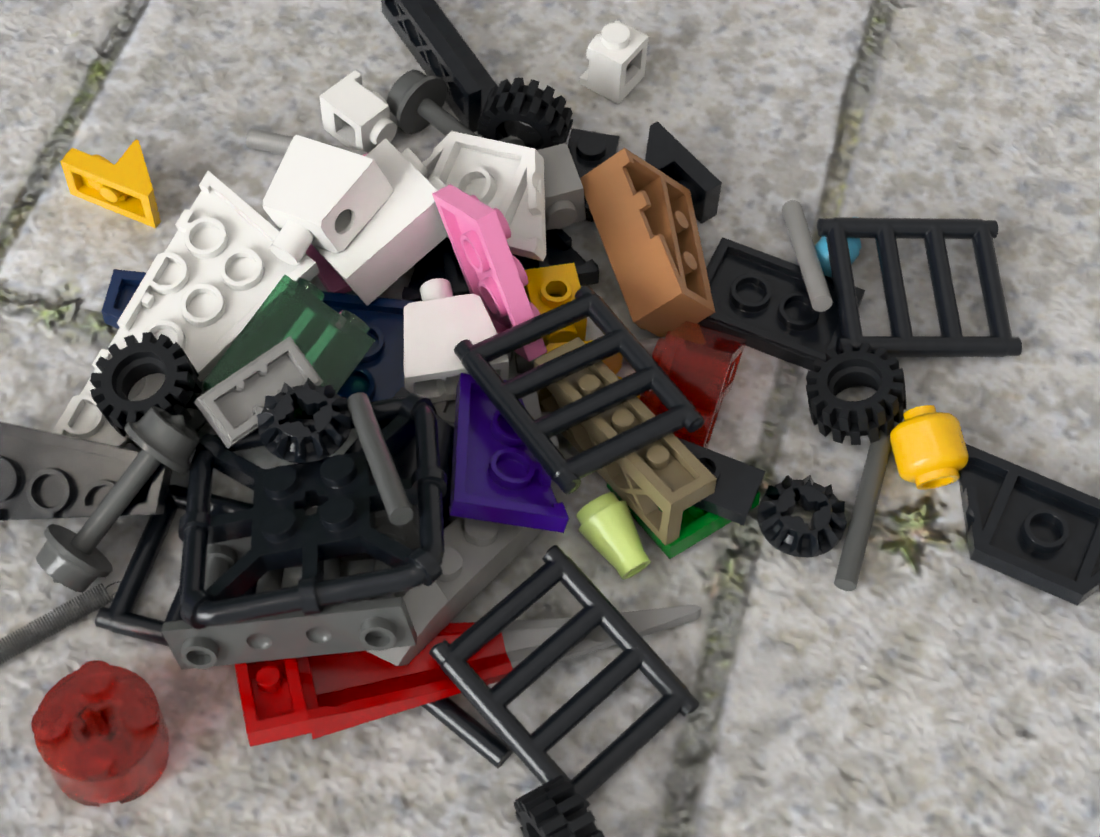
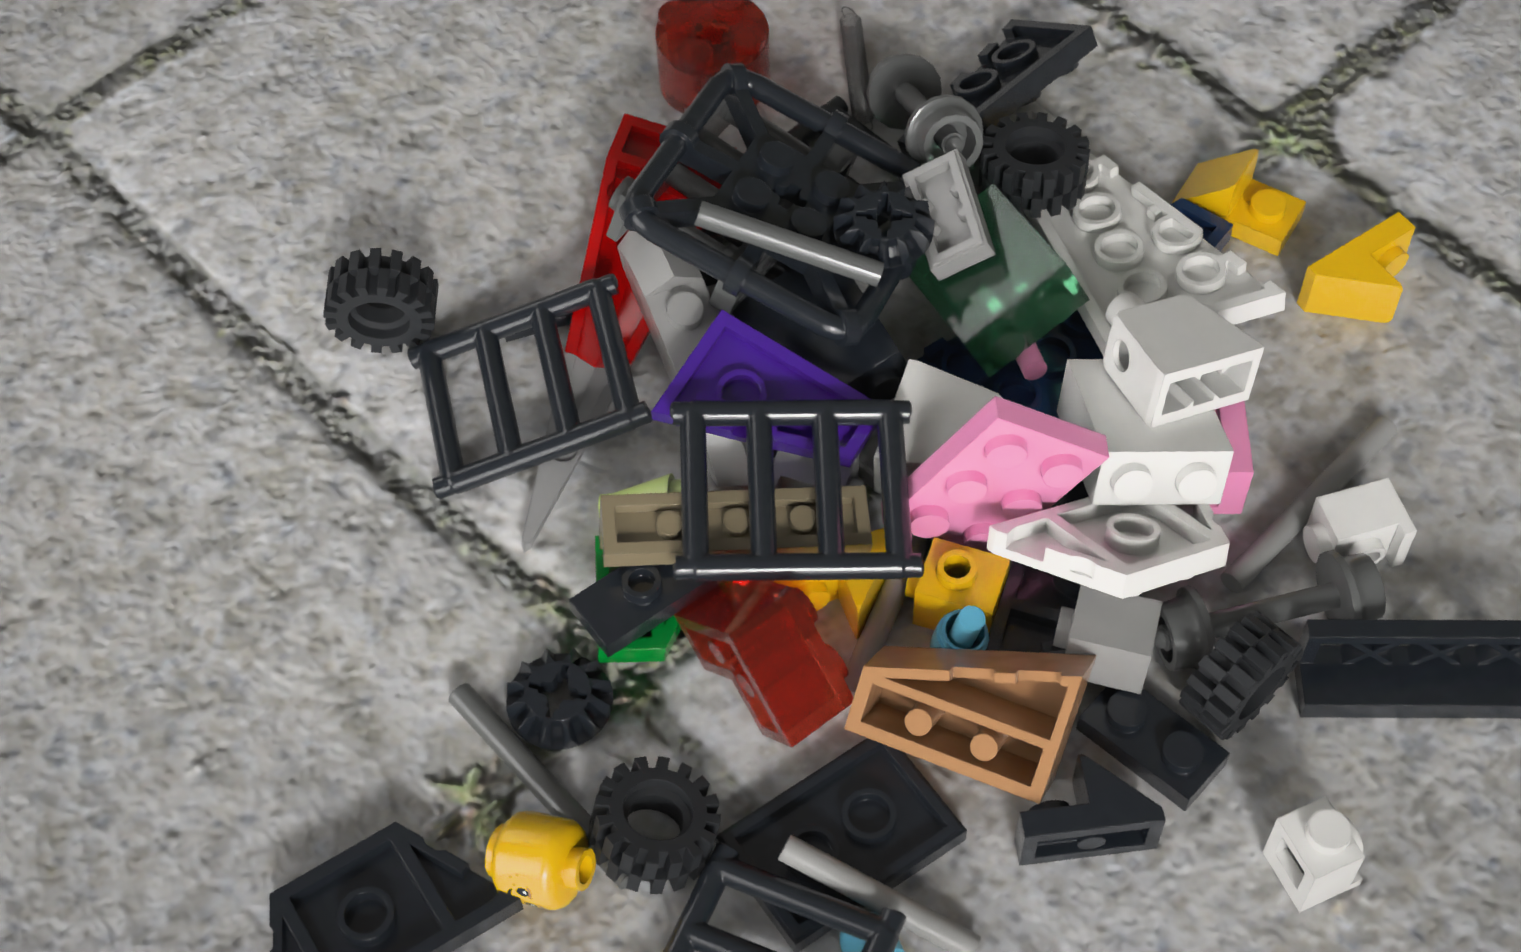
camera: 125 degrees right, 0 degrees up
(75, 288) = (1256, 210): none -> yellow slope
(599, 276) = (961, 630): none -> medium azure cylinder

